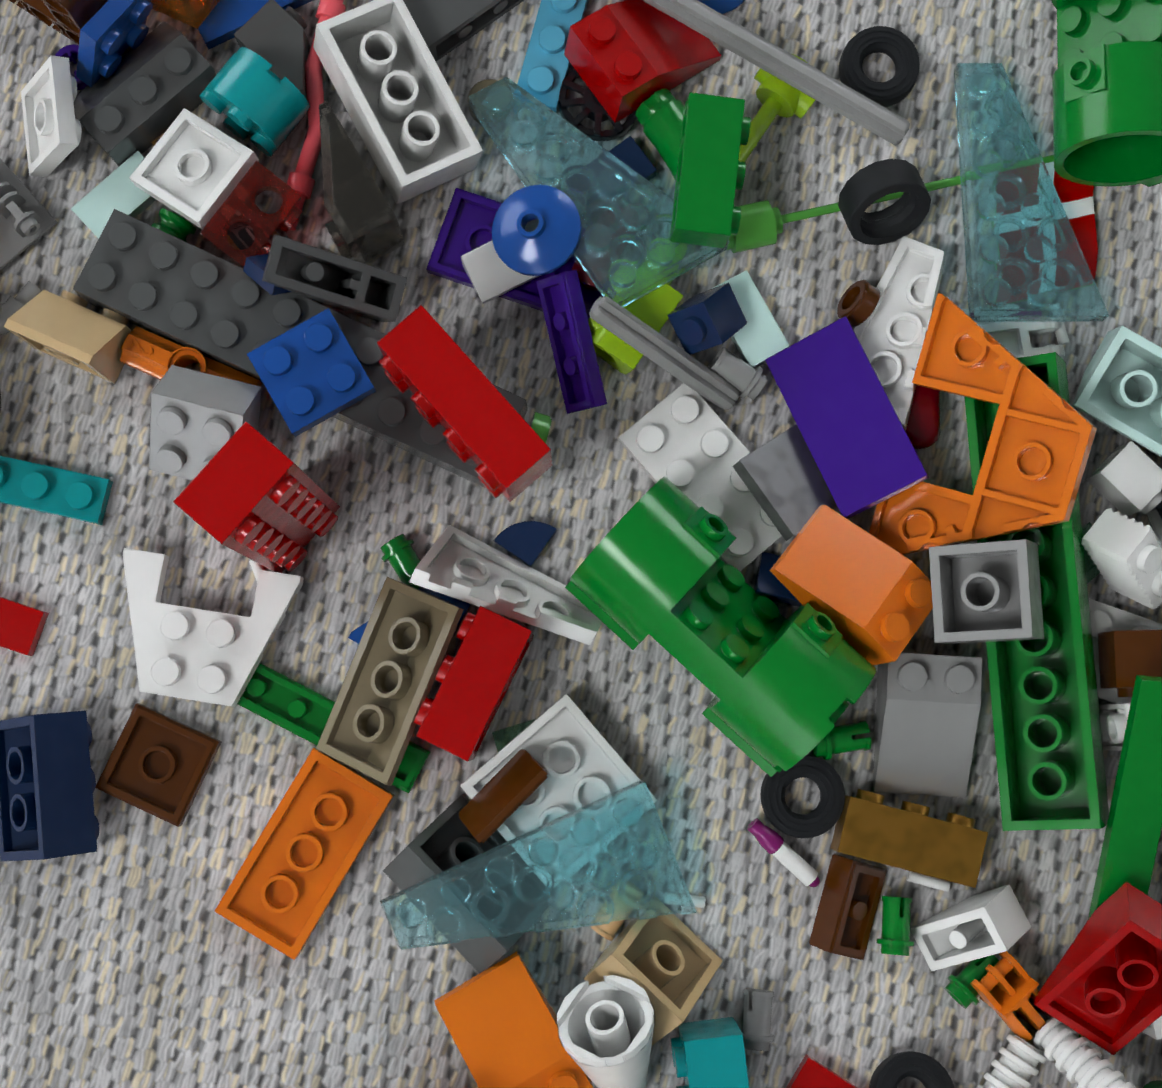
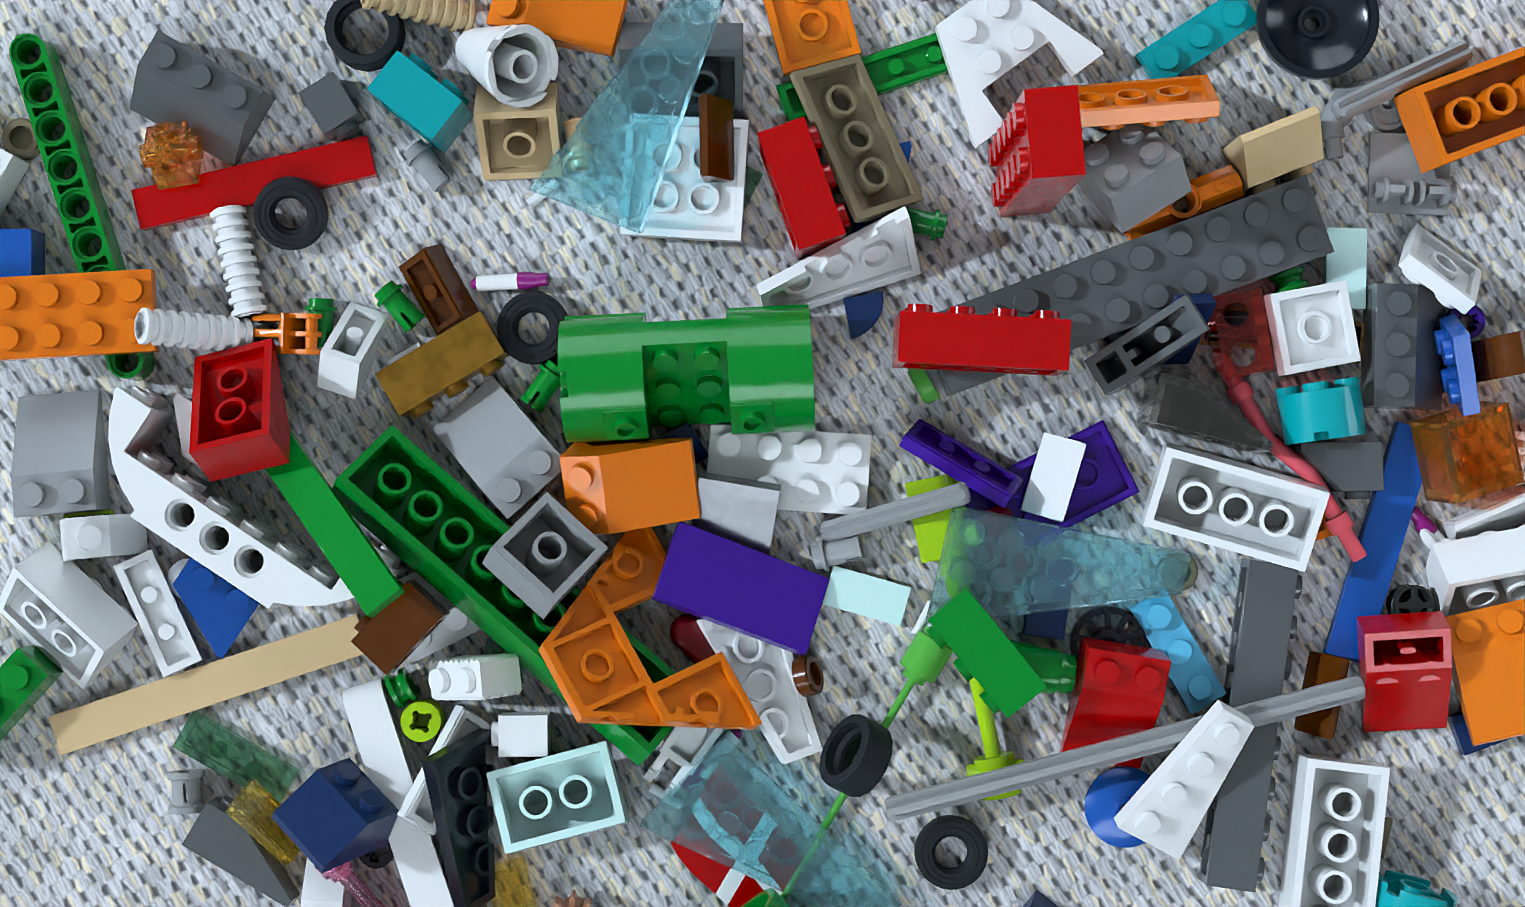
camera: 135 degrees right, 5 degrees up
(136, 478) = (1148, 102): none -> orange plate
(311, 372) = (1100, 272): blue plate -> none
(550, 243) = (1038, 513): blue dish -> none
(707, 319) = (890, 563): dark blue brick -> none
(720, 260) = (920, 624): none -> white piece

